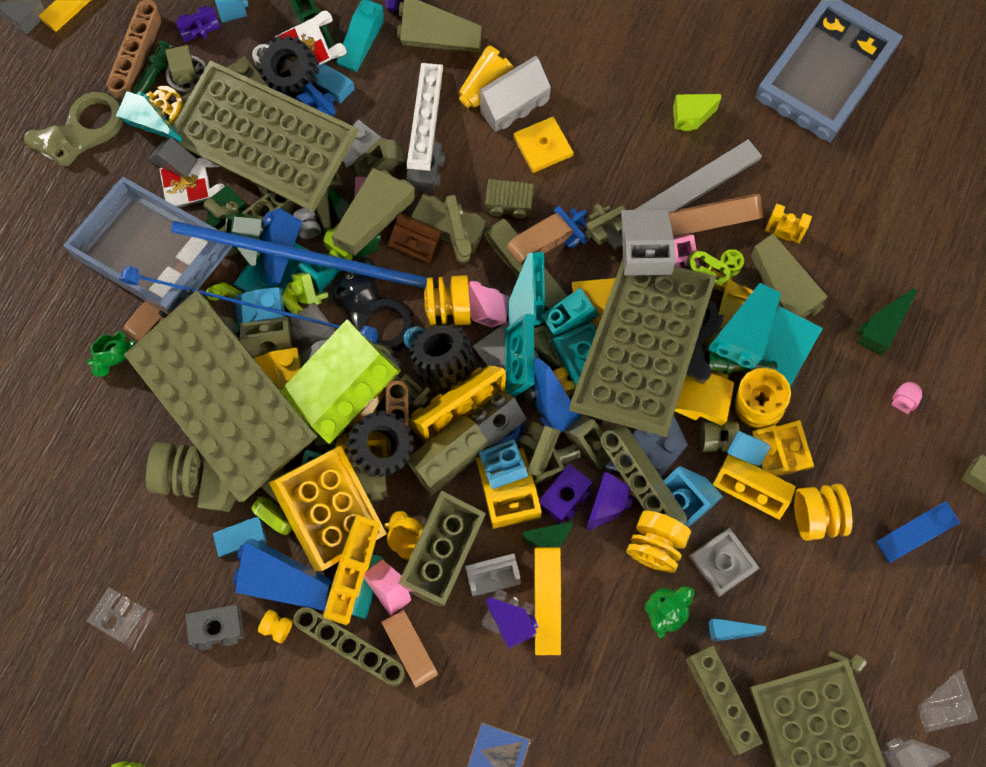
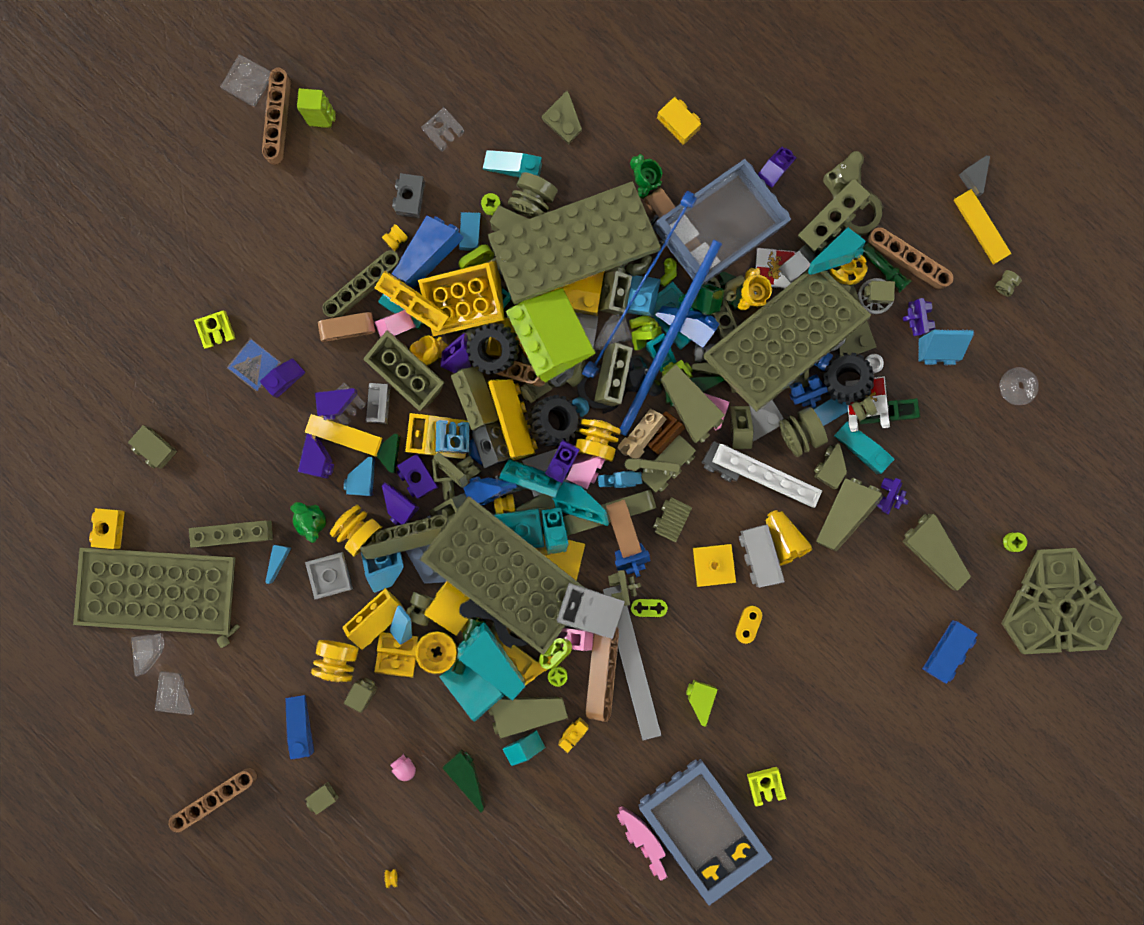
camera: 115 degrees right, 15 degrees up
(34, 335) = (679, 120): none -> yellow brick
(63, 213) = (776, 166): none -> dark purple slope
(65, 472) = (563, 118): none -> olive wing
(77, 112) = (851, 191): none -> olive brick
(138, 512) = (512, 163): none -> slope
(202, 525) = (490, 207): none -> lime wheel
(217, 184) = (756, 283): none -> yellow hair
(317, 39) = (868, 406): none -> olive wheel
(363, 93) = (805, 430): none -> olive wheel
(365, 304) = (613, 374): none -> olive brick
(392, 58) = (833, 467): none -> olive slope
(401, 491) = (455, 355): none -> dark purple slope
(423, 259) = (641, 434): none -> tan plate
(484, 262) = (620, 479): none -> dark azure brick
(487, 327) = (562, 461): none -> dark purple slope
(501, 707) = (282, 377): none -> dark purple slope
(592, 622) = (315, 458): none -> dark purple slope
(593, 92) = (746, 623): none -> yellow plate
(593, 561) = (361, 479): none -> dark azure slope
(621, 192) = (649, 613): none -> lime beam
(751, 27) = (774, 782): none -> neon yellow brick
(827, 273) = (524, 748): none -> teal slope
(848, 467) = (361, 694): none -> olive brick
(865, 121) = (642, 835): none -> bright pink slope

